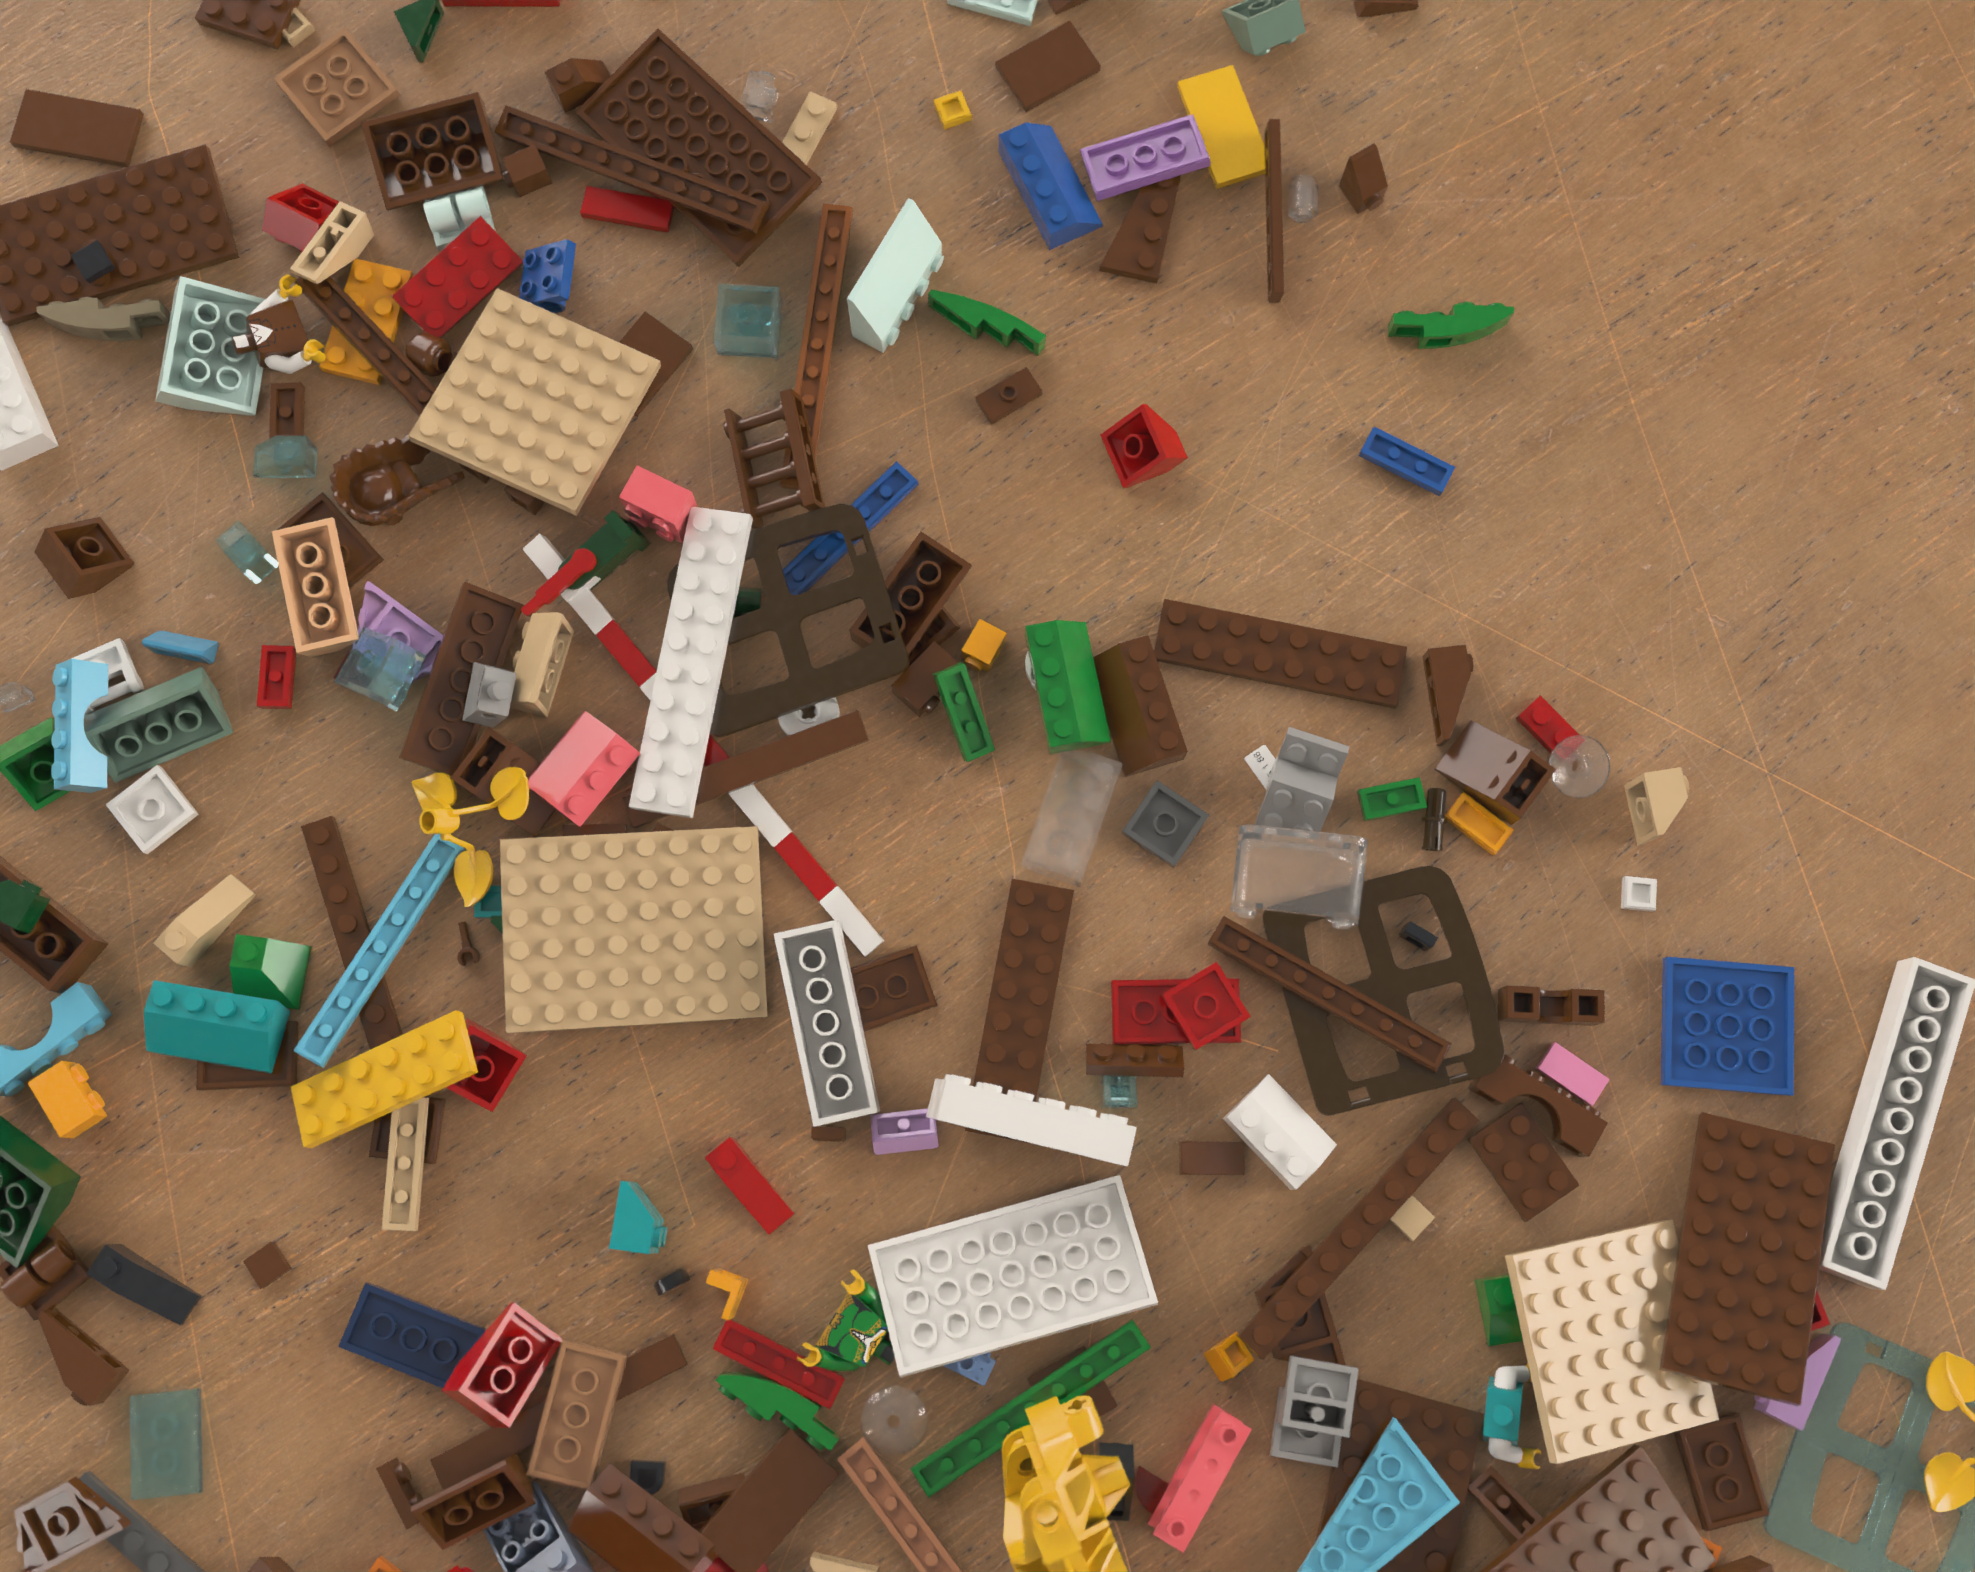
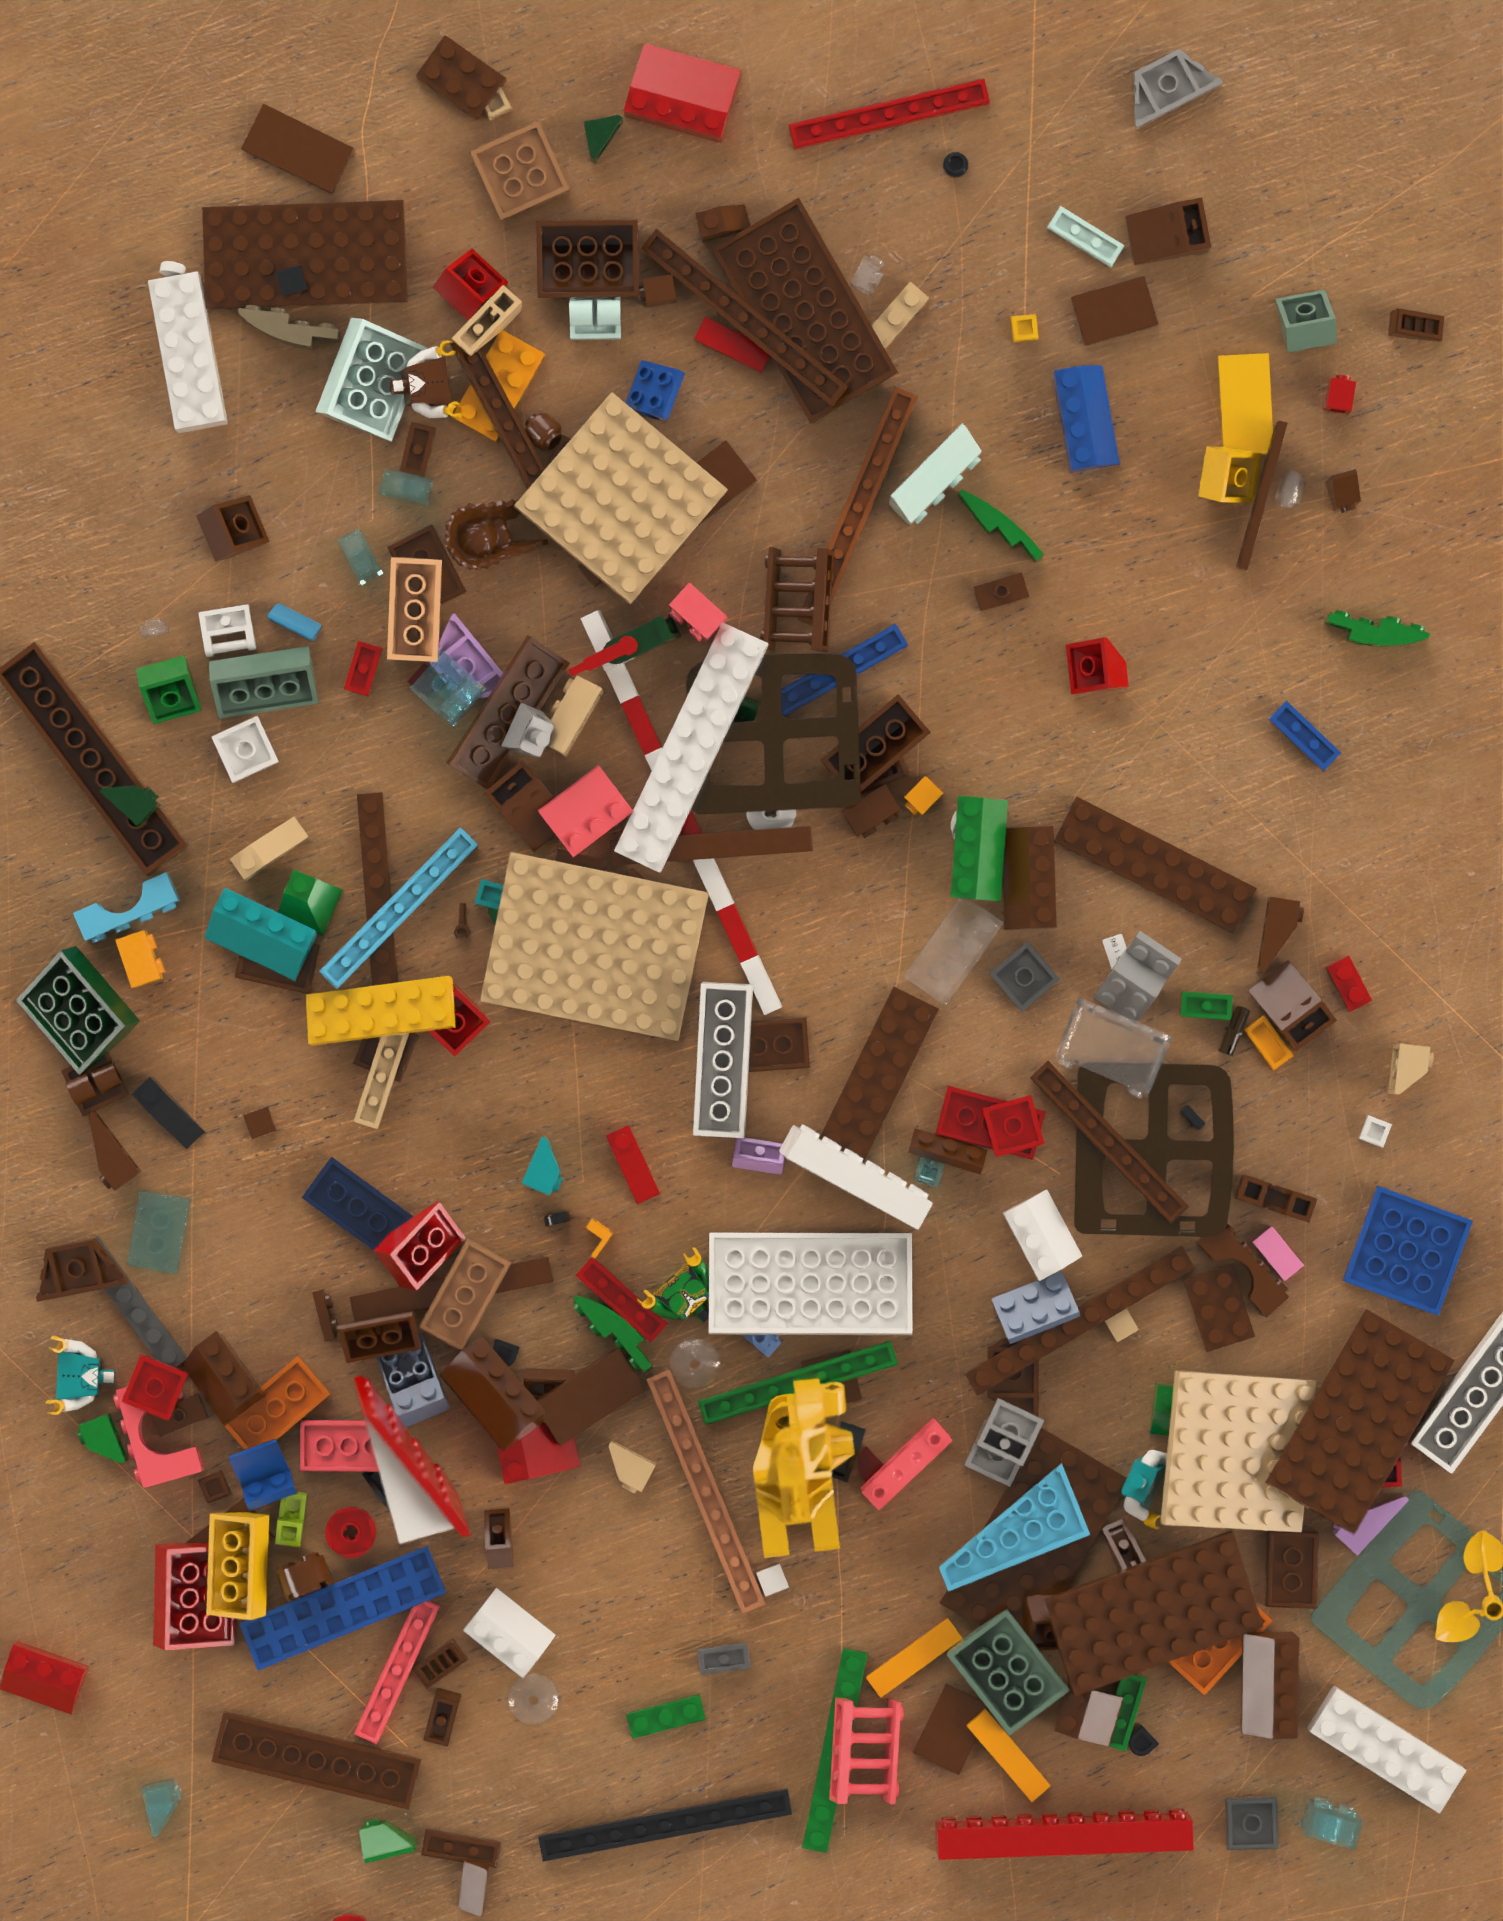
camera: 15 degrees right, 10 degrees up
(76, 761) = (211, 646): medium azure arch -> none
(438, 794) = (468, 800): yellow plant -> none
(458, 279) = (581, 372): red plate -> none
(748, 320) = (807, 474): clear light blue brick -> none
(828, 1134) = (702, 1142): reddish brown tile -> none
(964, 712) = (892, 847): green plate -> none
(1143, 234) = (1152, 480): reddish brown wing -> none
(1145, 157) = (1170, 418): medium lavender tile -> none
(1211, 1158) = (984, 1240): reddish brown slope -> none
(1228, 1357) = (954, 1388): light orange slope -> none
(1230, 198) = (1230, 474): none -> yellow slope
(1300, 1225) = (1035, 1307): none -> plate
(1326, 87) = (1340, 395): none -> red brick
(1592, 769) = (1365, 1031): clear dish -> none

